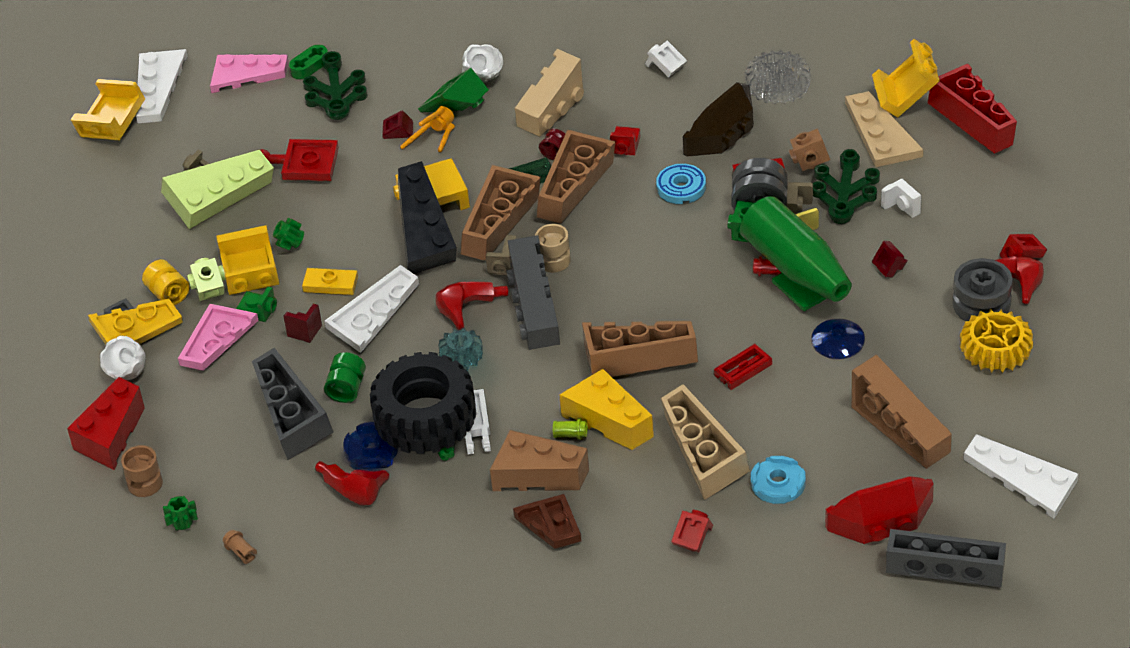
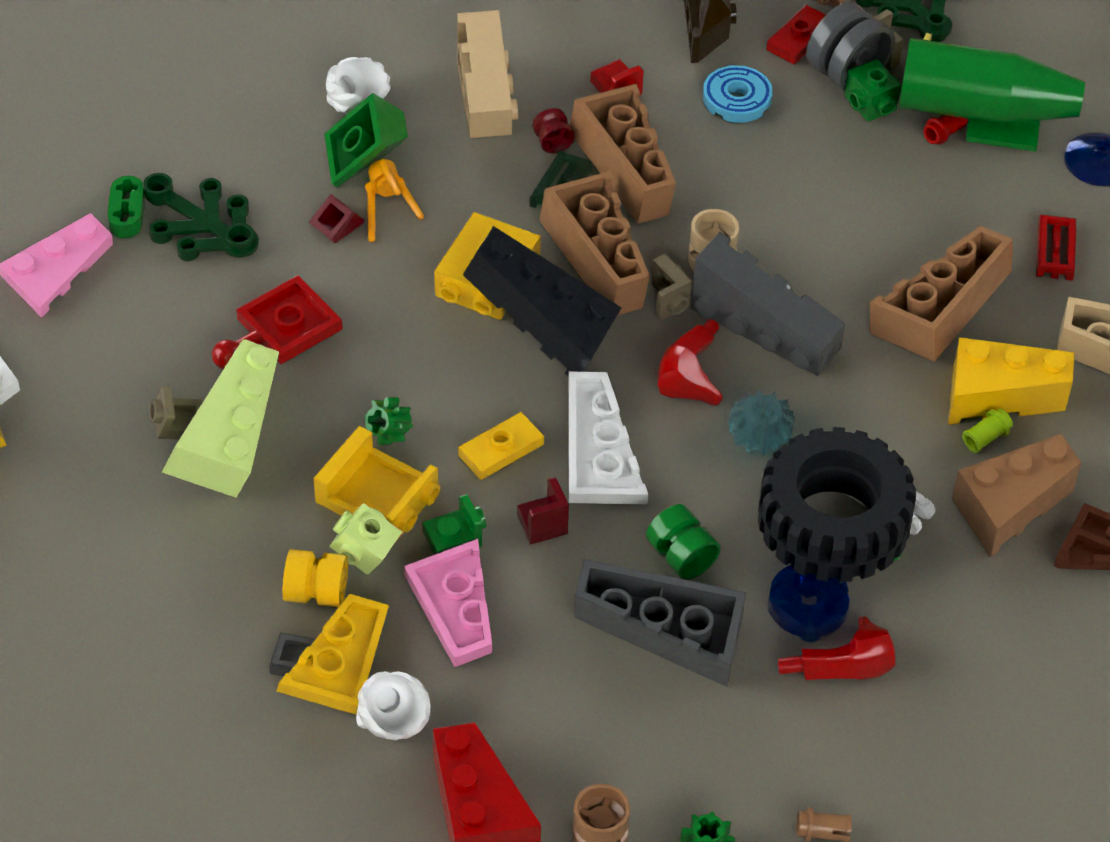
camera: 50 degrees left, 5 degrees up
(889, 259) = (1050, 45): dark red tile -> none

